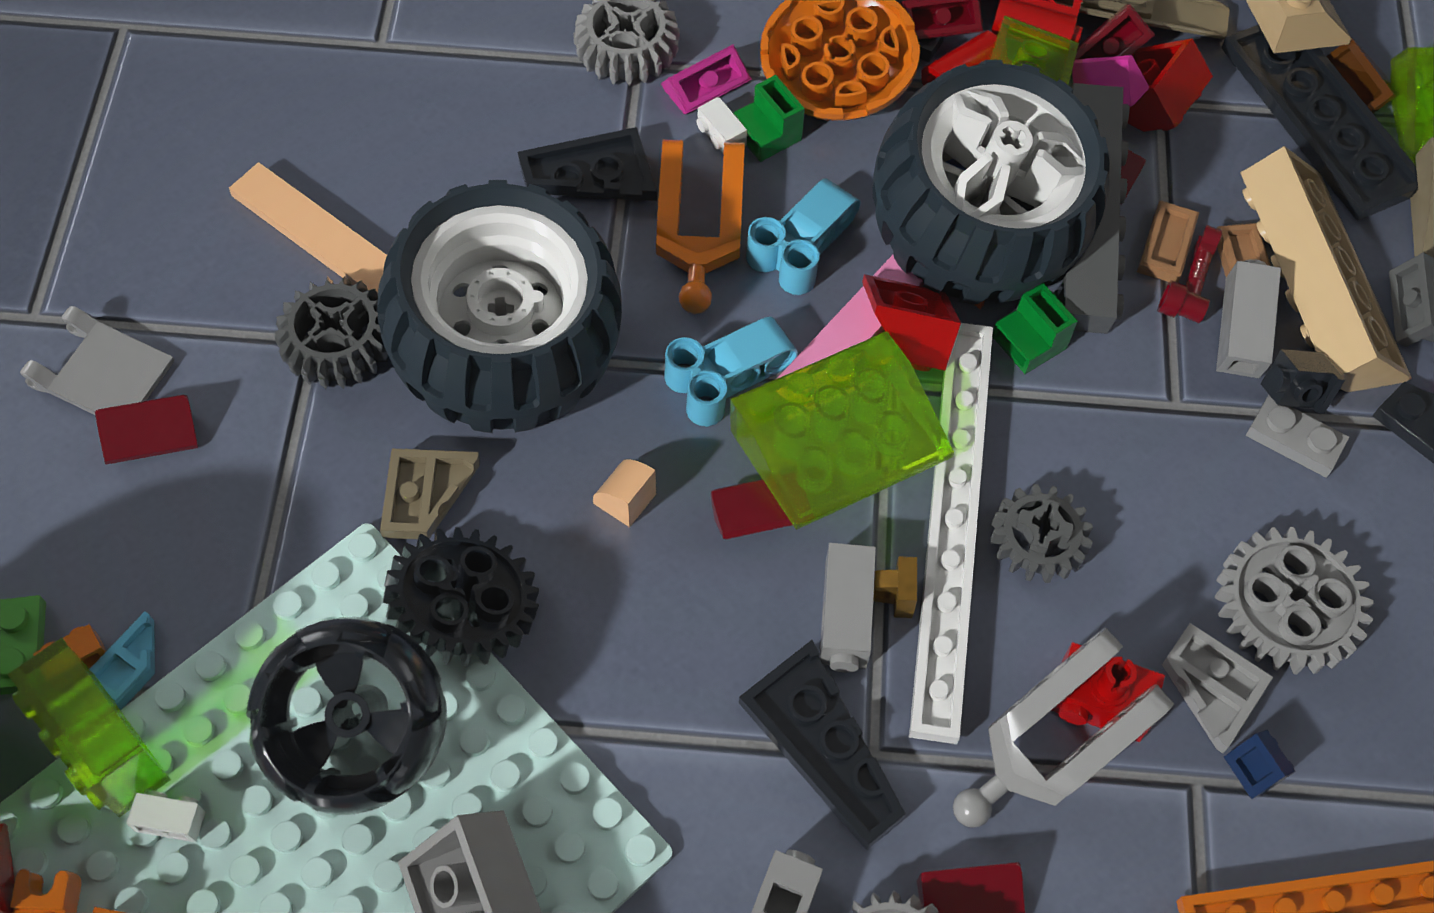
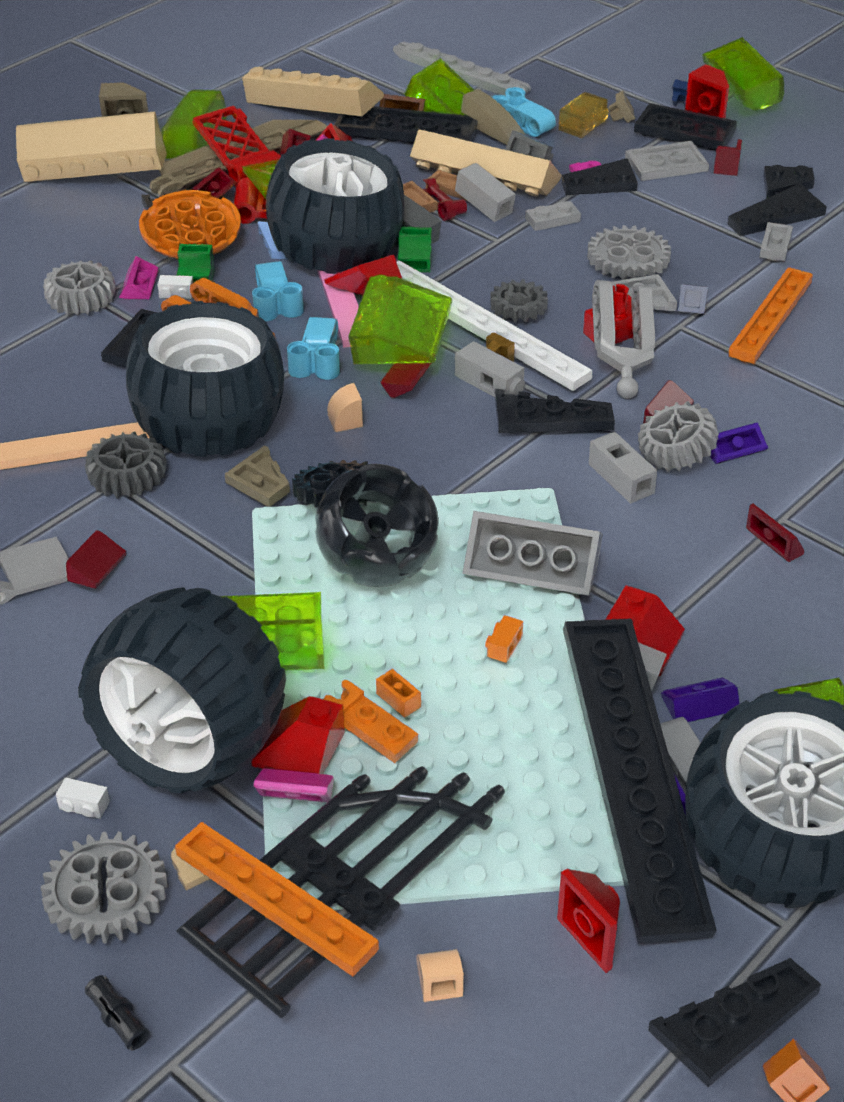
camera: 50 degrees left, 20 degrees down
(166, 817) = (348, 642): white piece -> none
(1302, 380) = (532, 193): black brick -> none

